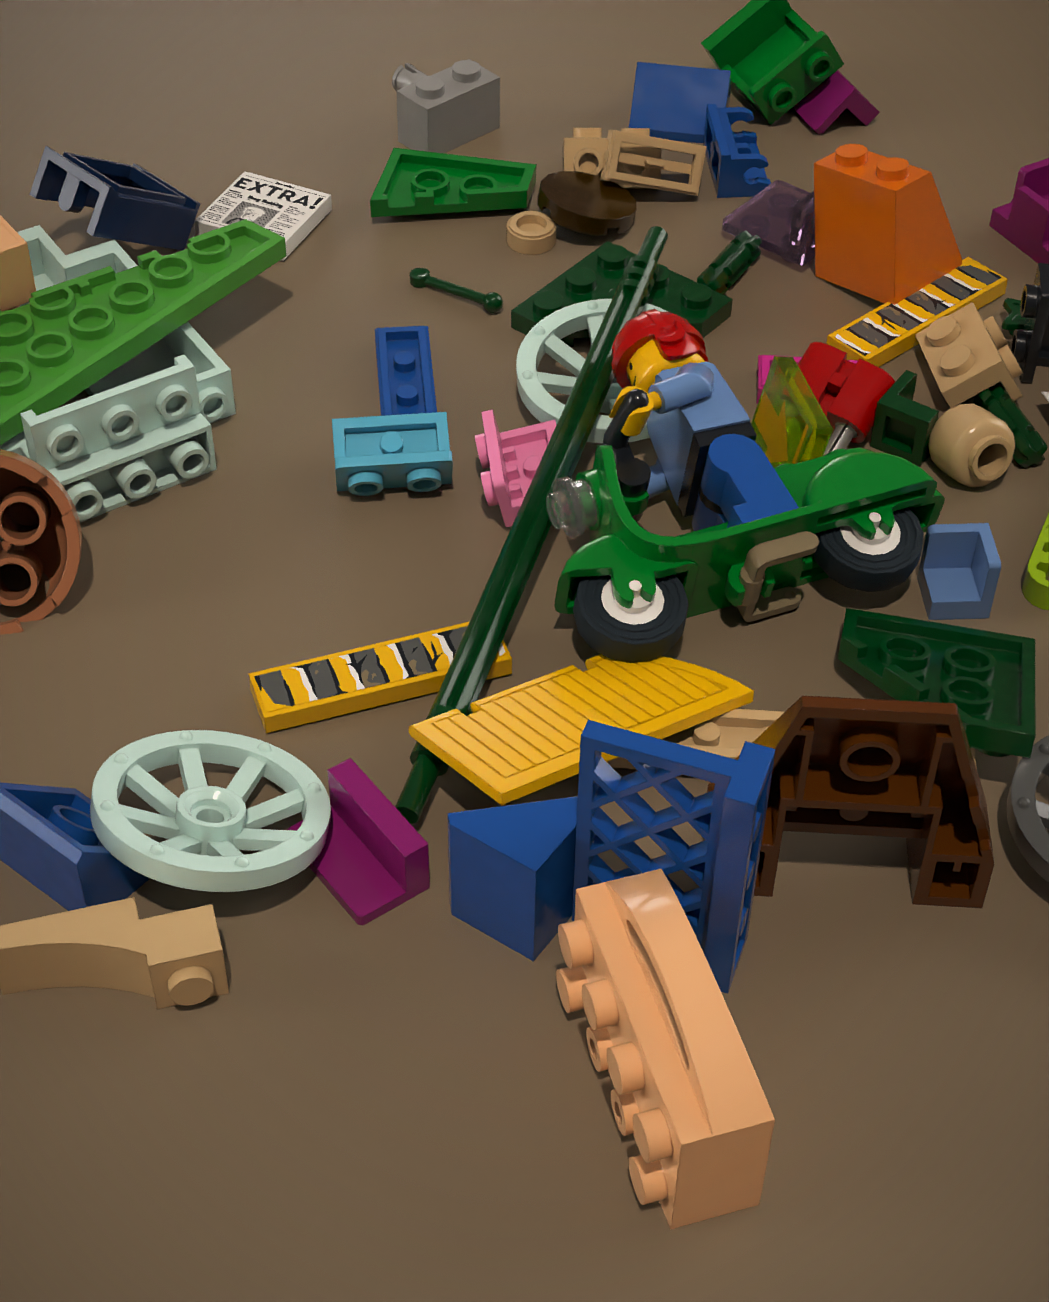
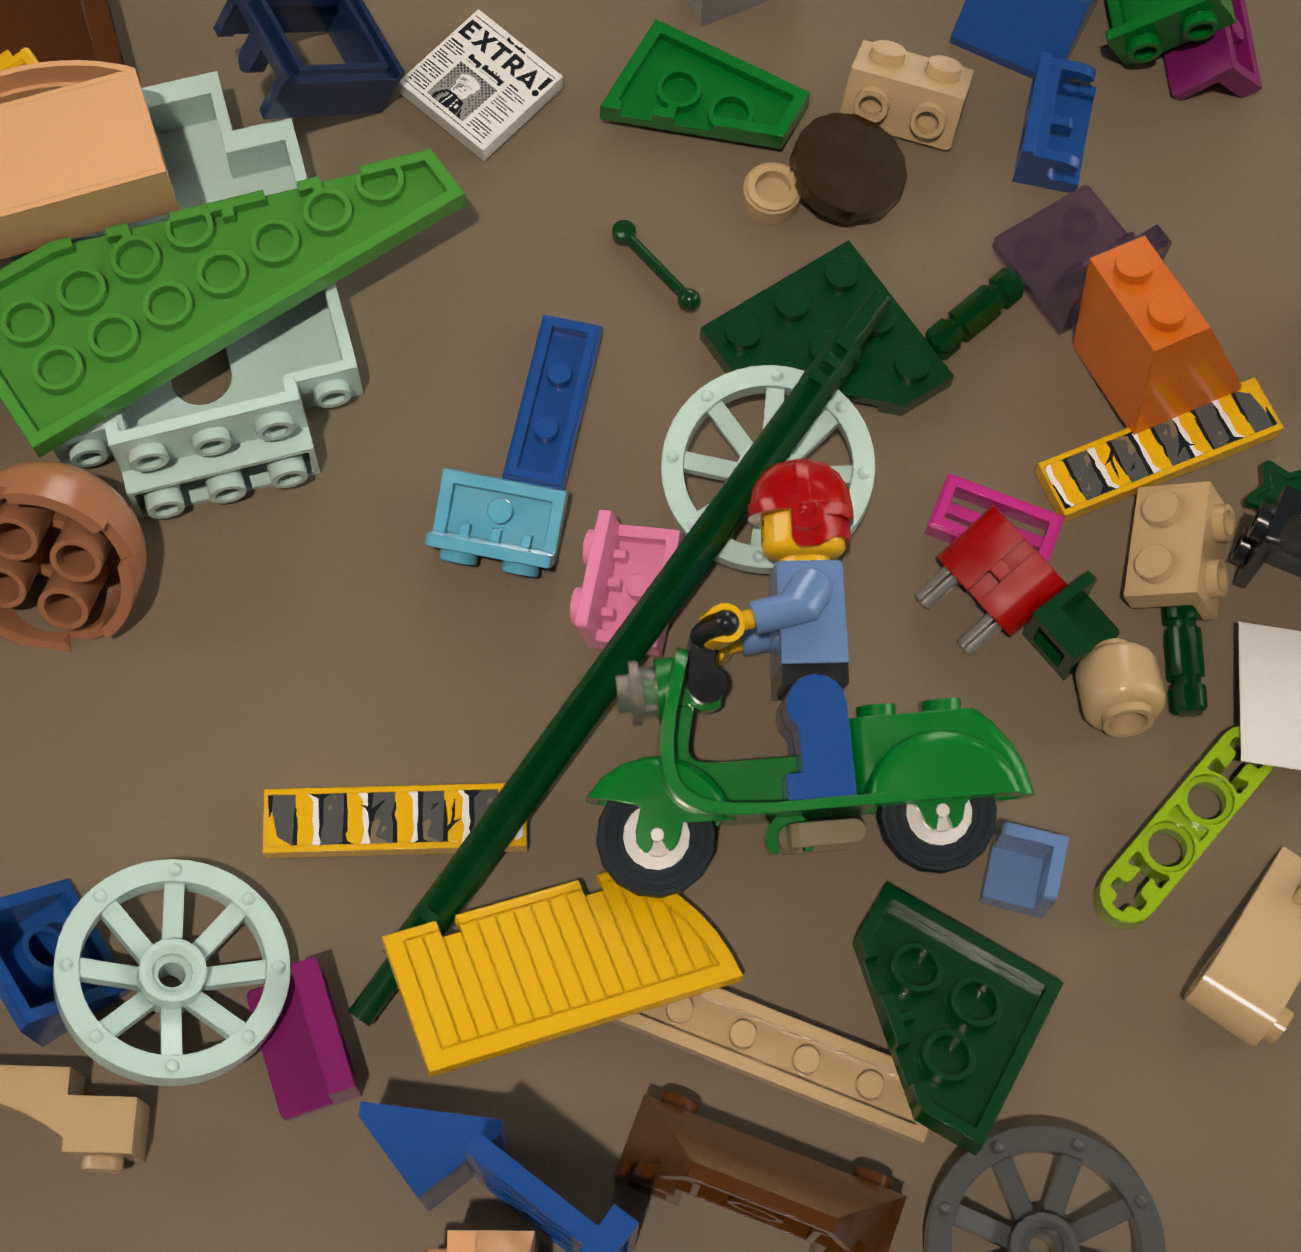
camera: 15 degrees right, 25 degrees up
(614, 156) = (949, 111): tan tile -> none
(788, 416) = (912, 637): clear neon green tile -> none

